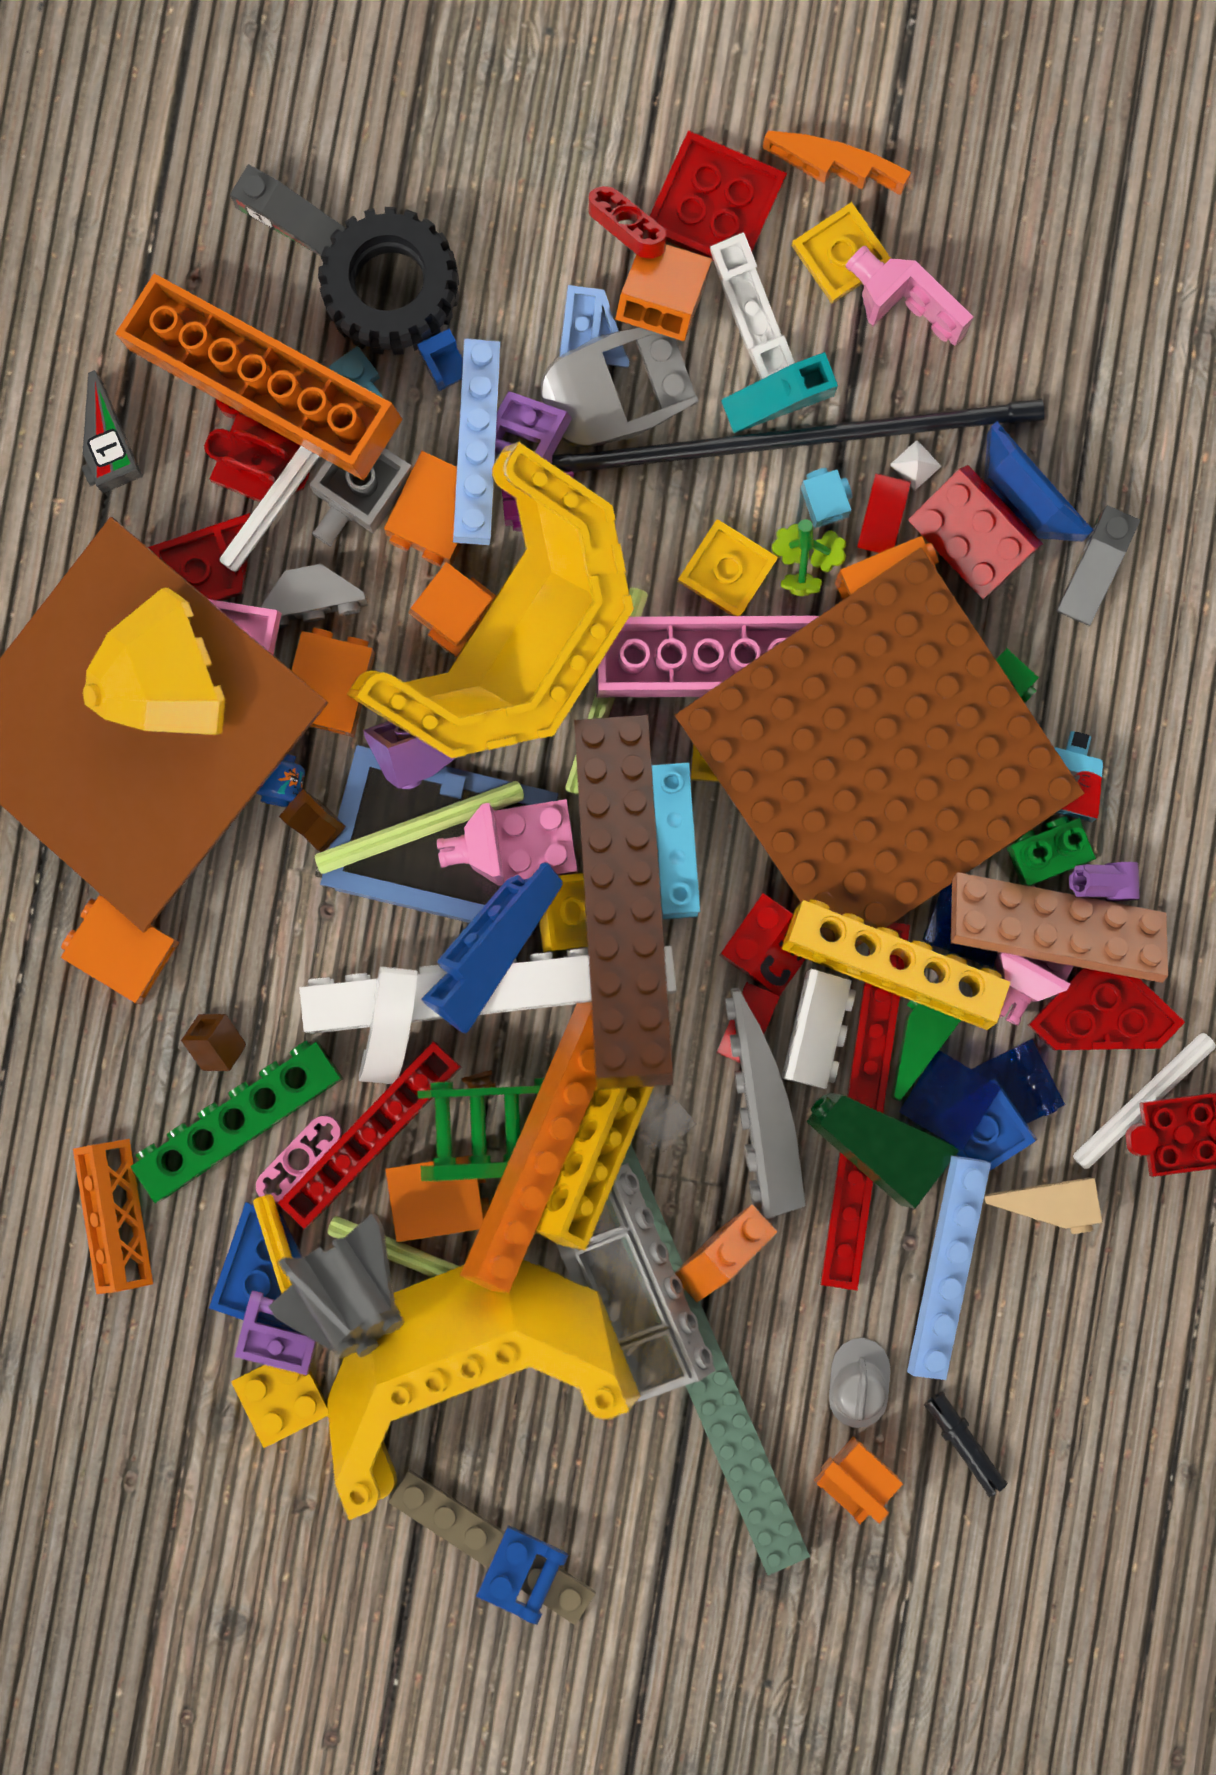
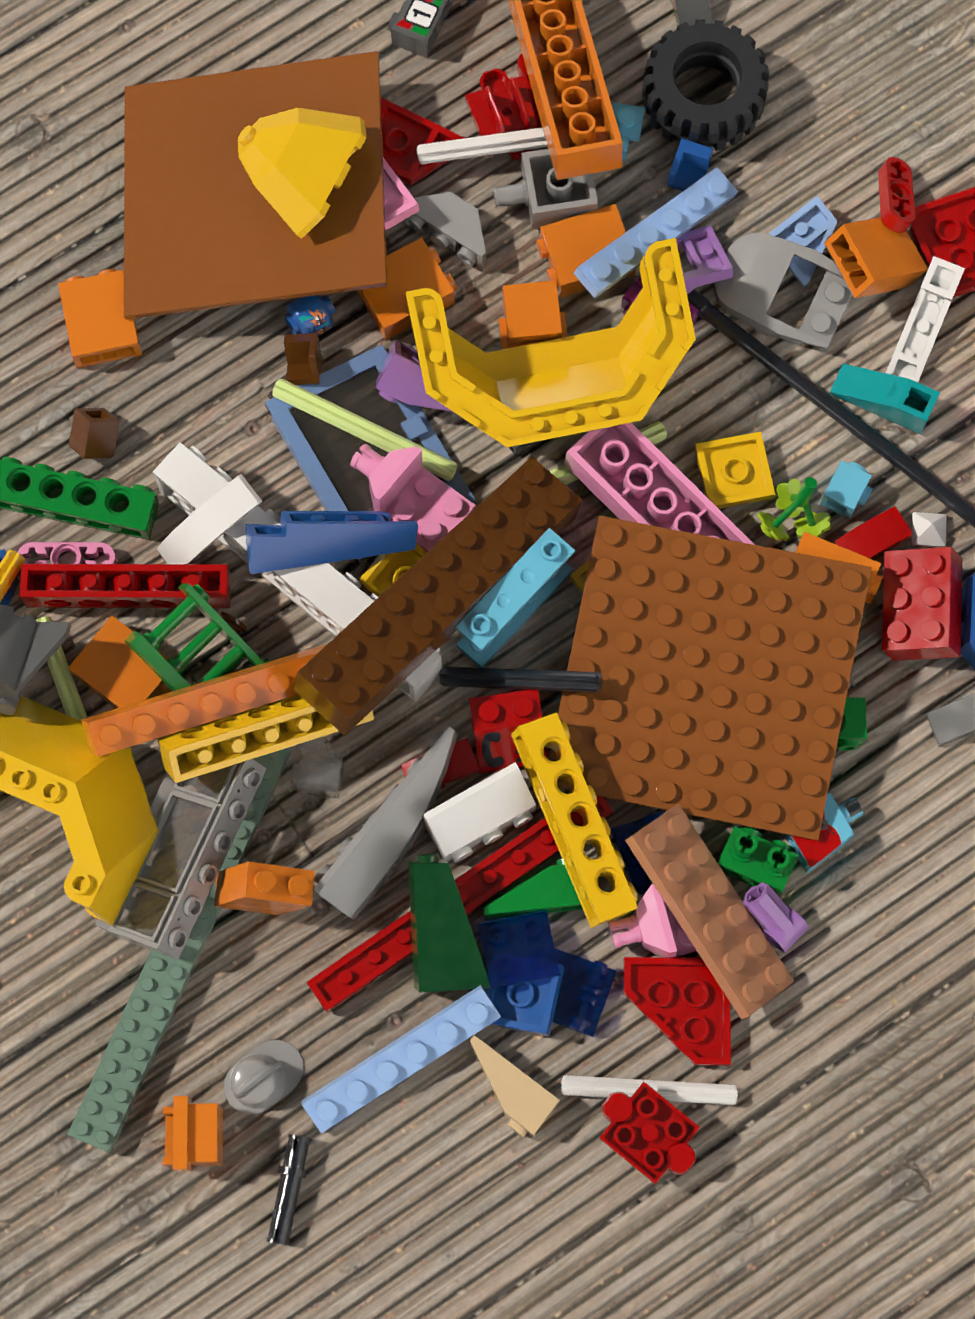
camera: 45 degrees right, 10 degrees down
(743, 898) = (521, 679): none -> black axle

